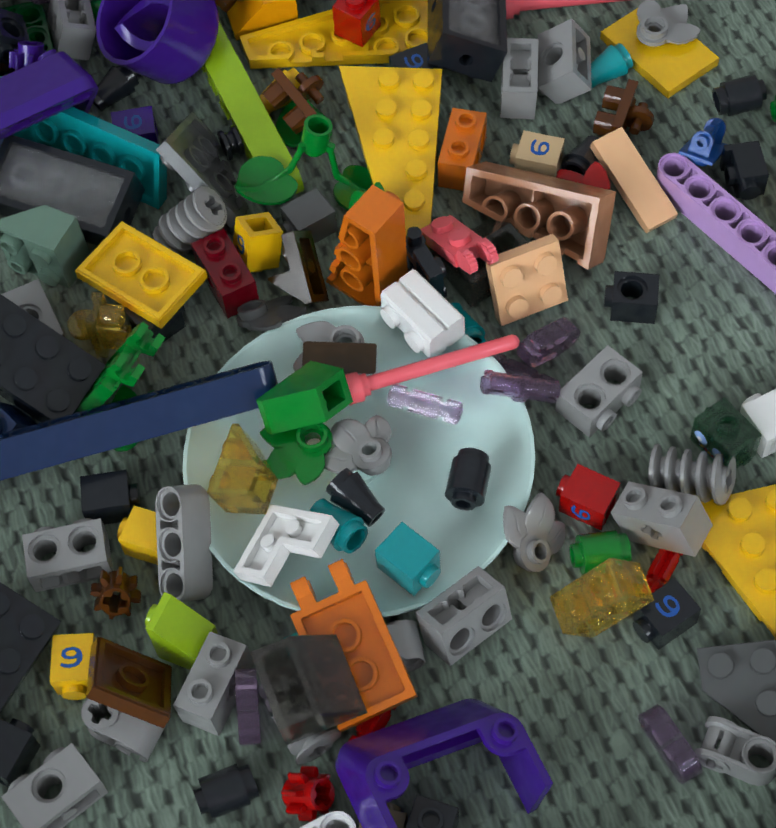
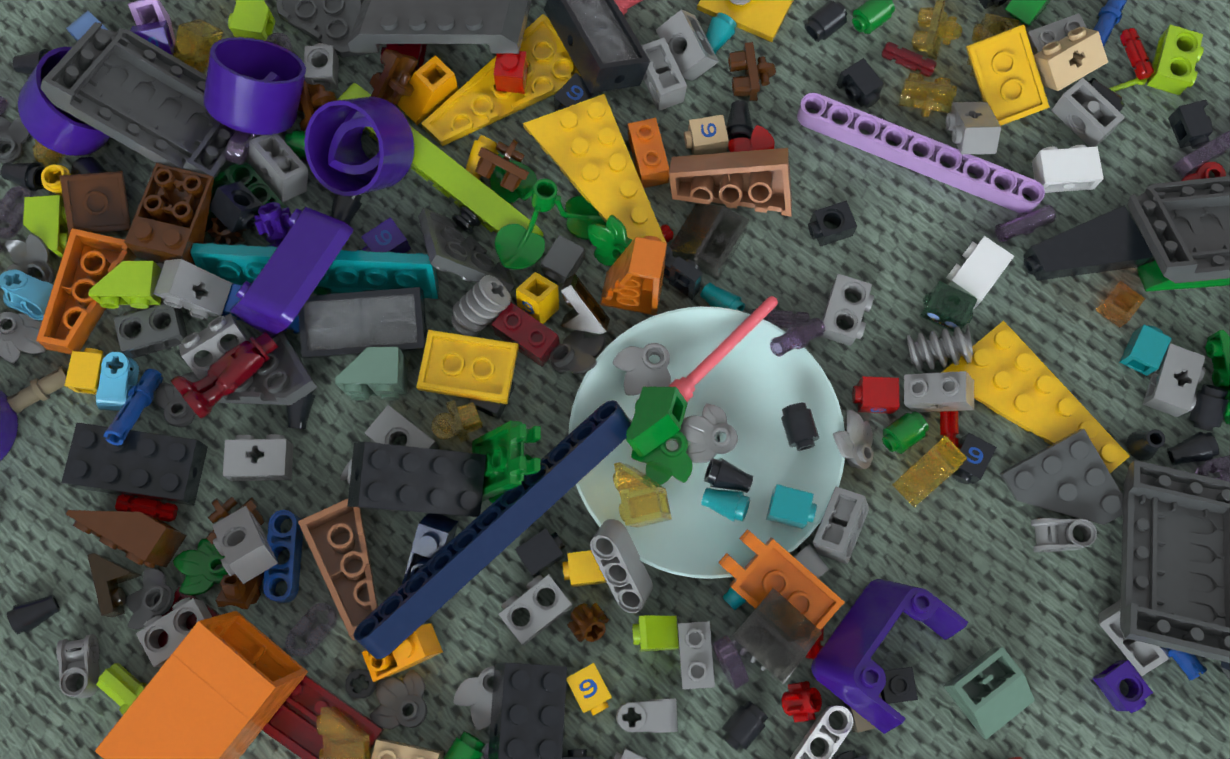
camera: 30 degrees left, 15 degrees up
(129, 682) = (642, 687): reddish brown plate -> none
(279, 534) = (692, 529): white plate -> none
(349, 356) = (659, 372): dark brown sticker -> none
(421, 314) = (699, 311): white brick -> none
(425, 403) = (736, 380): clear purple axle -> none
(458, 243) = (698, 242): coral hinge -> none
(527, 279) = (755, 245): light nougat plate -> none
(548, 342) = (791, 286): clear purple beam -> none
(633, 180) = (786, 126): light nougat tile -> none
(670, 744) = (1016, 549): clear purple beam -> none
(706, 144) = (824, 75): blue hinge -> none

